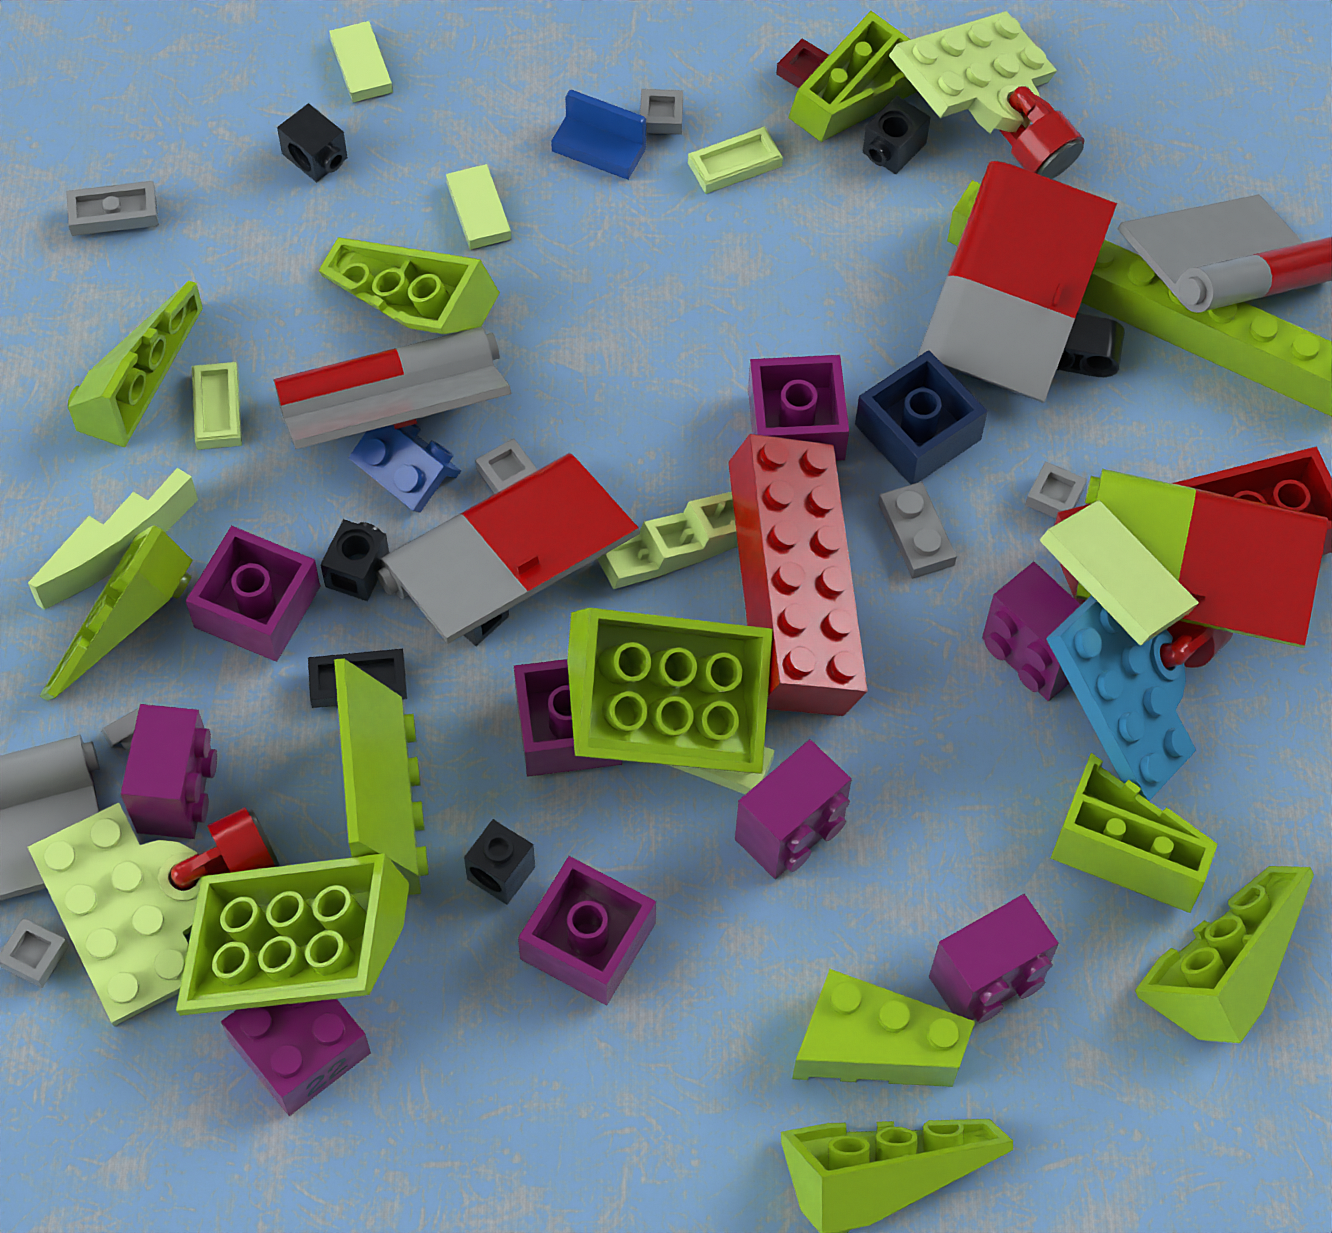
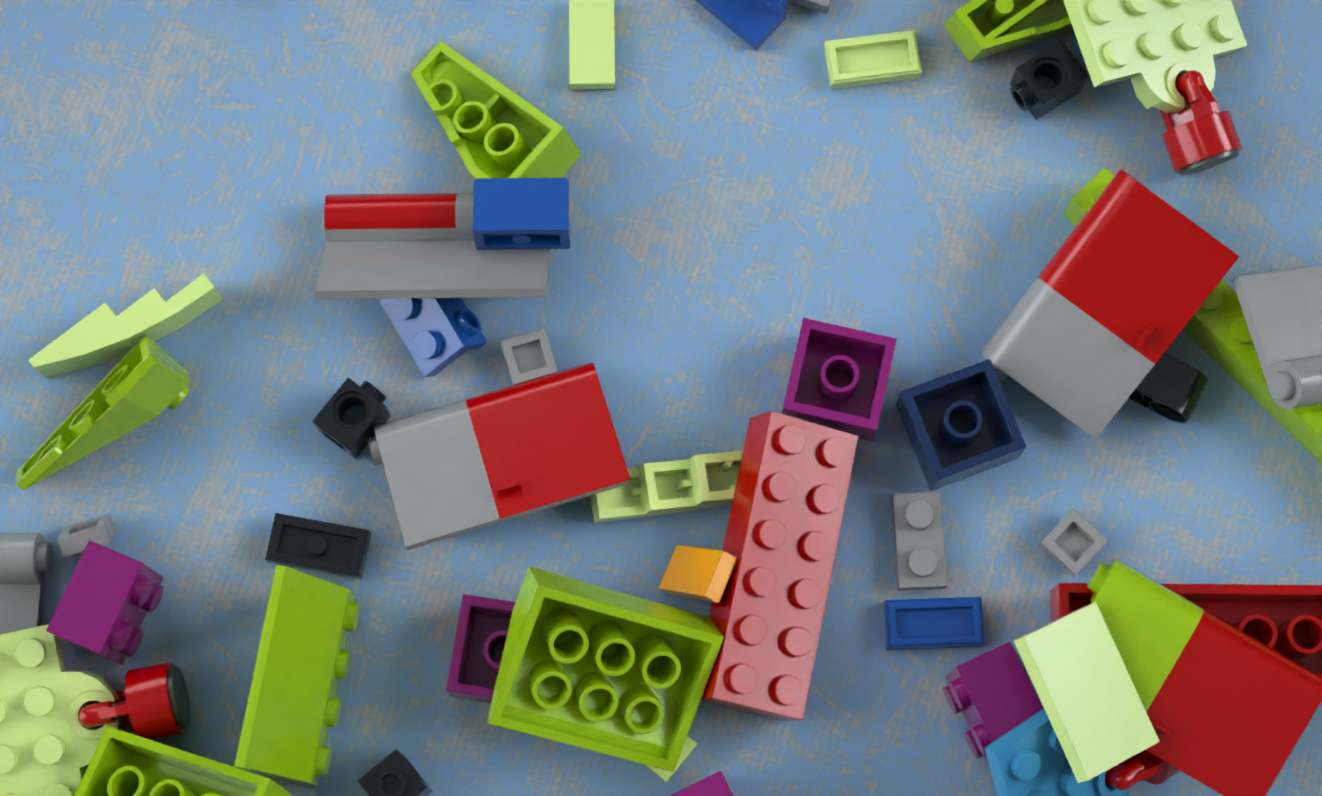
camera: 20 degrees right, 15 degrees up
(127, 378) = (185, 152): lime wedge -> none
(216, 405) = (268, 201): yellowish green tile -> none
(253, 593) = (241, 431): magenta brick -> none
(465, 340) = (521, 213): none -> blue panel
(729, 593) = (698, 573): none -> light orange tile
(952, 593) = (933, 623): none -> blue tile

